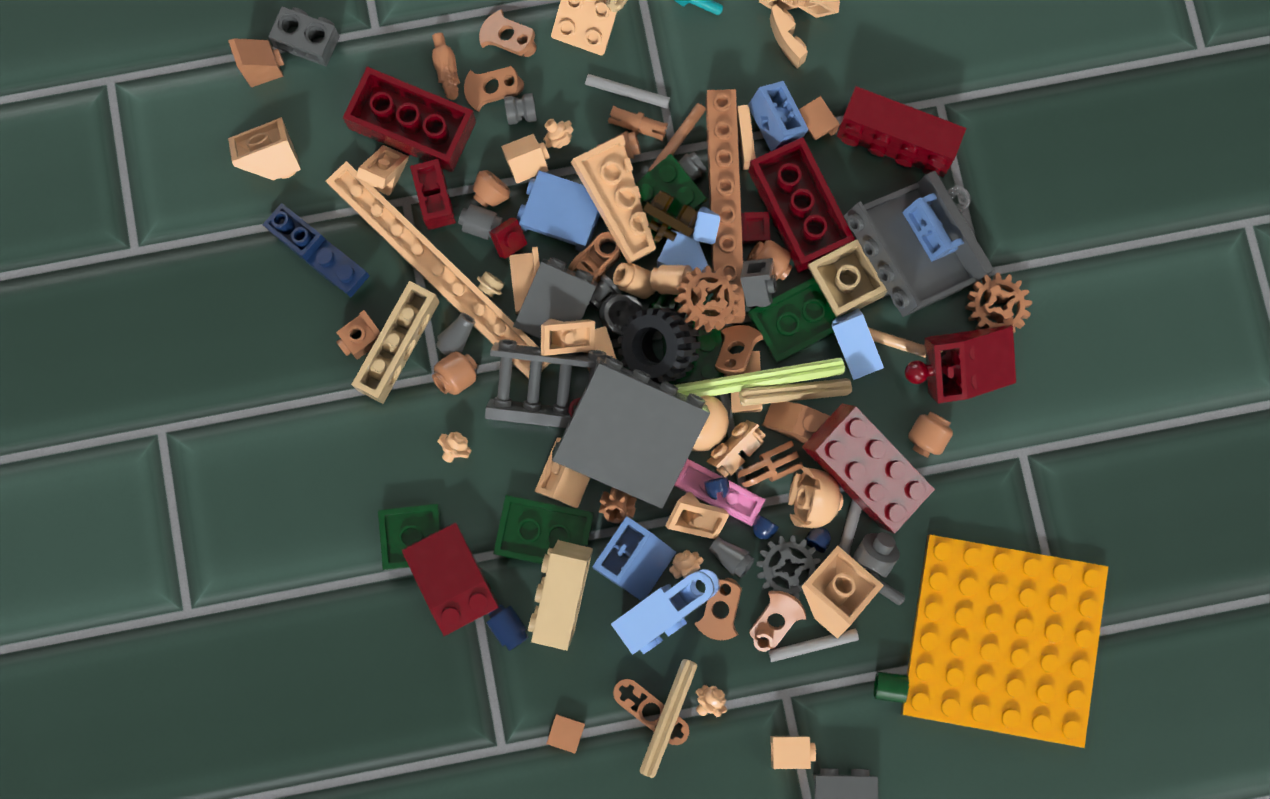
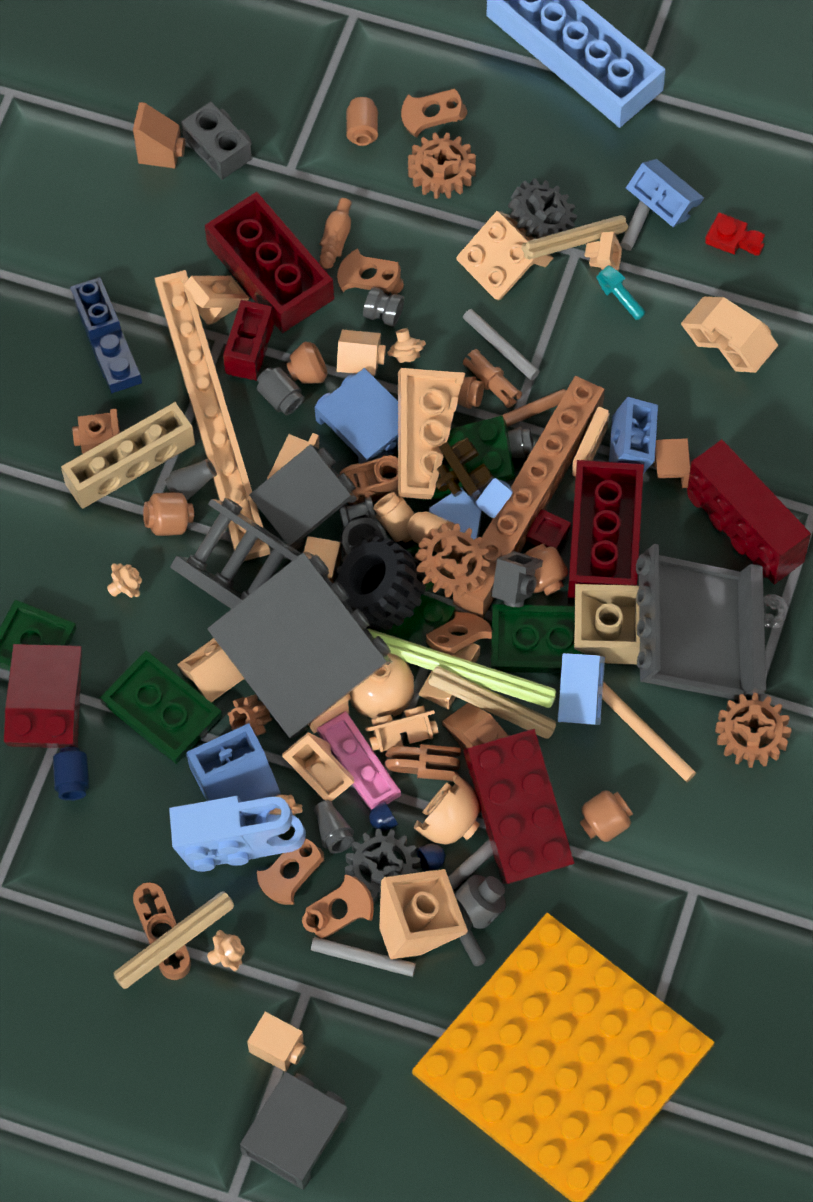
camera: 30 degrees right, 15 degrees down
(265, 151) = (115, 224): light nougat slope -> none
(490, 284) = (253, 452): tan plate -> none
(508, 237) = (297, 416): dark red plate -> none
(520, 43) = (421, 247): nougat piece -> none
(560, 594) = (139, 761): tan brick -> none
(565, 733) = (65, 906): nougat tile -> none
(567, 336) = (292, 525): light nougat slope -> none
(717, 485) = (357, 748): dark blue hinge -> none
(783, 30) = (692, 367): light nougat slope -> none
(891, 687) = (415, 1035): dark green beam -> none
(929, 228) = (724, 617): medium blue hinge -> none
(971, 360) = (690, 767): dark red slope -> none

